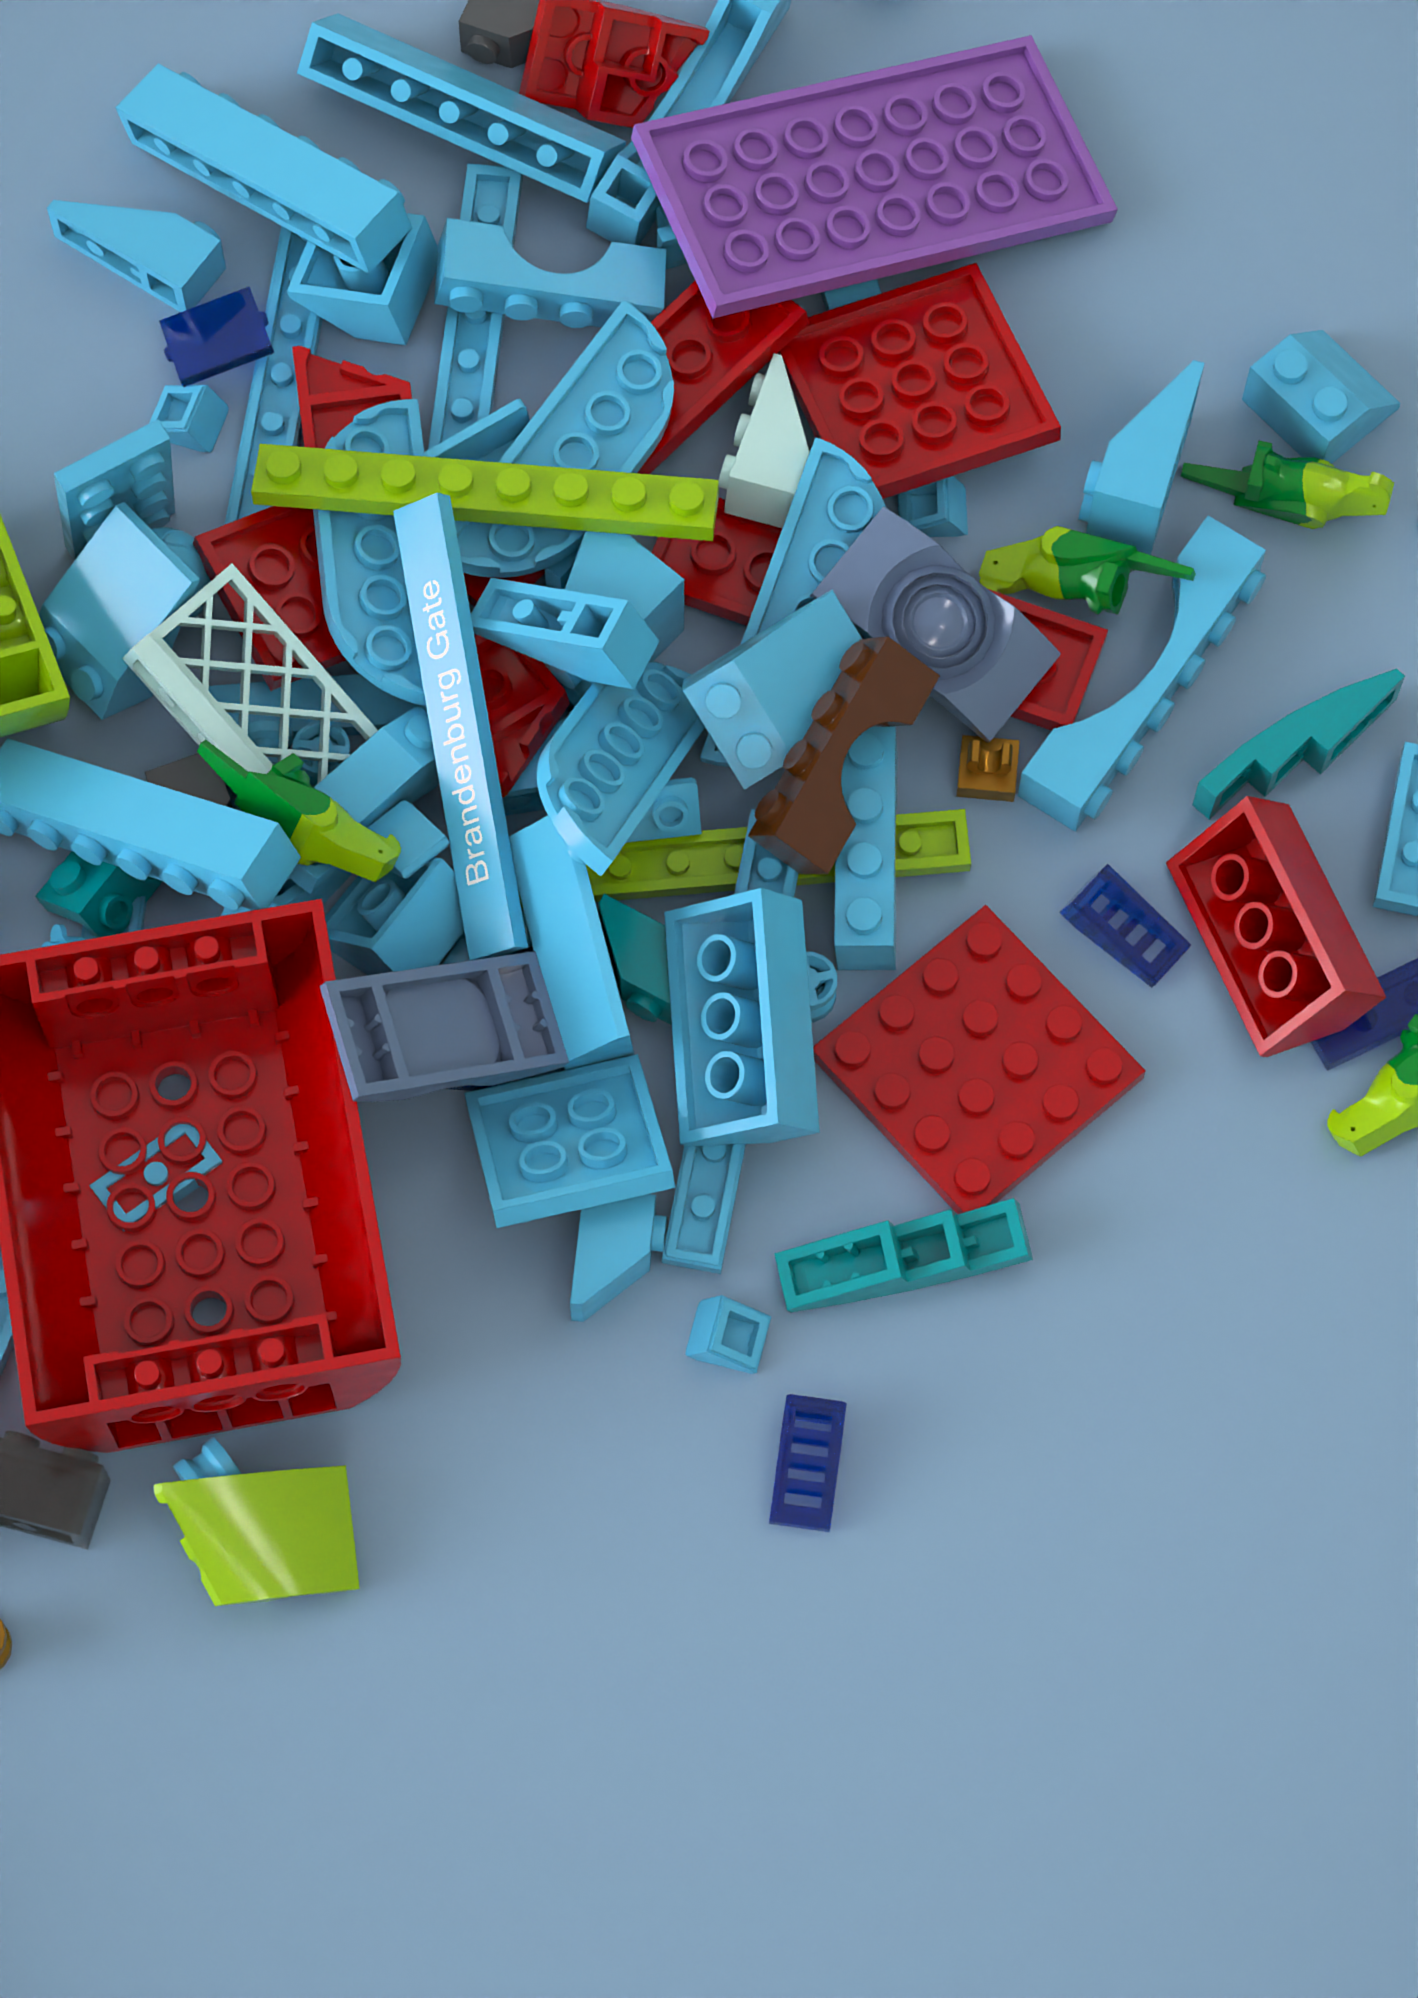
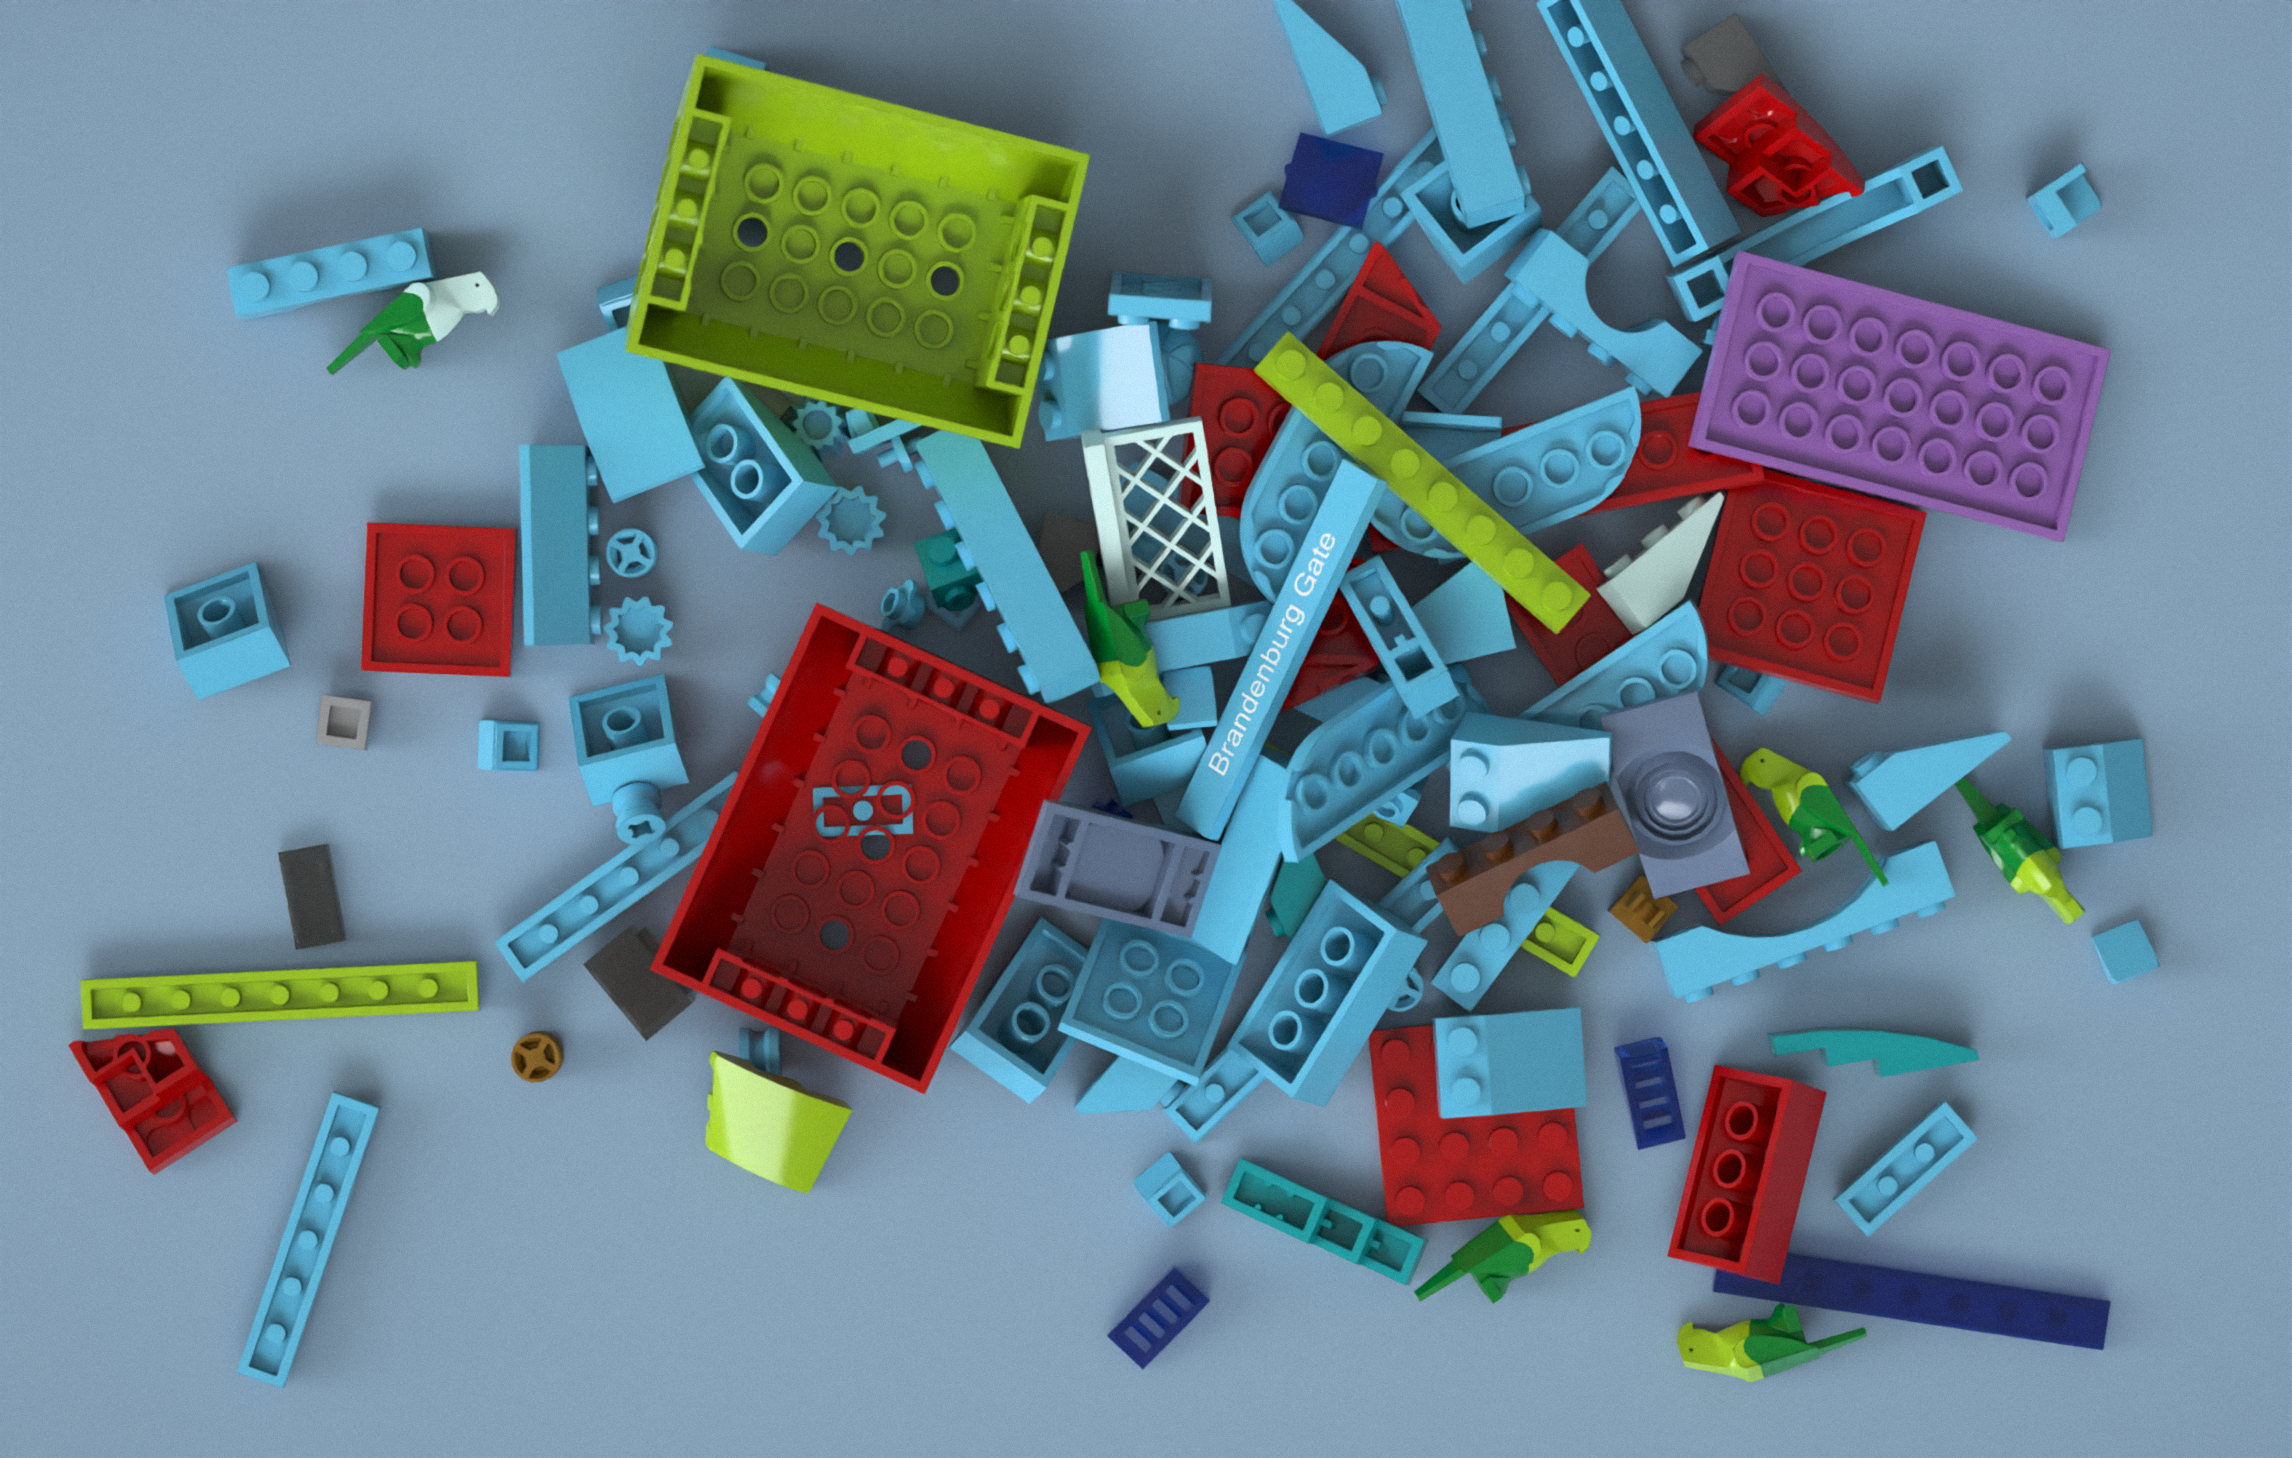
camera: 30 degrees right, 20 degrees up
(459, 1268) = (1017, 1020): none -> medium azure slope
(962, 975) = (1509, 1062): none -> medium azure slope
(1107, 1156) = (1512, 1250): none -> animal

